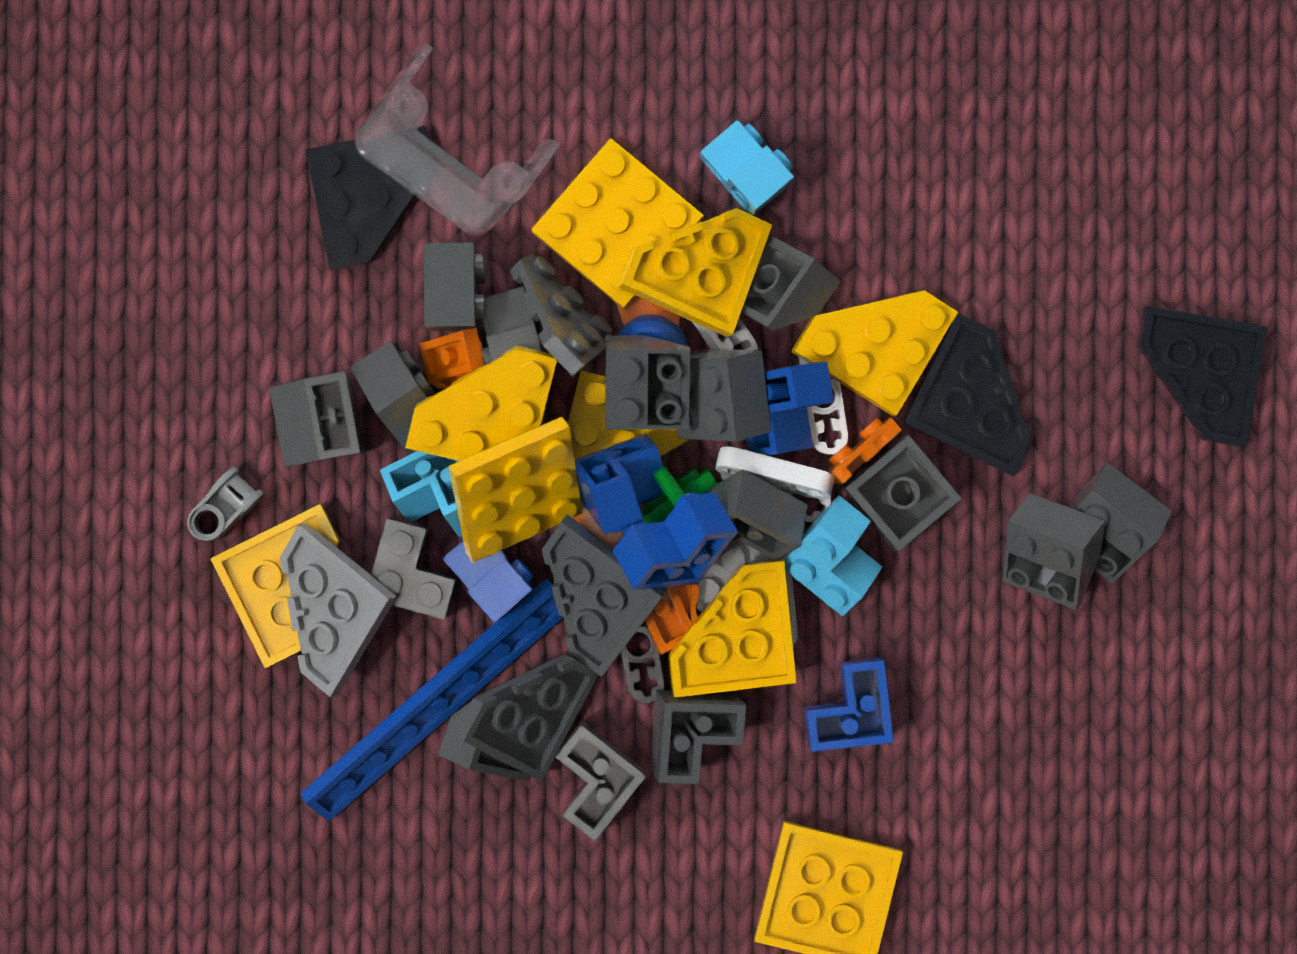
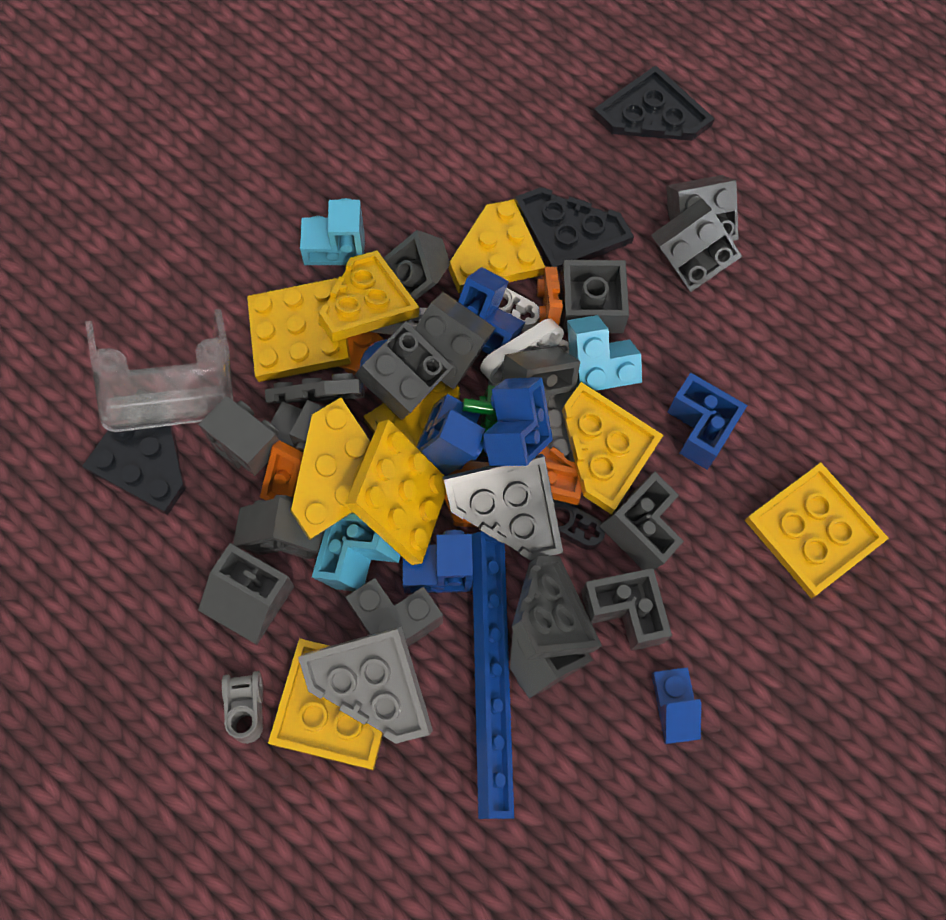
camera: 55 degrees left, 20 degrees down
(547, 887) = (676, 706): none -> blue slope

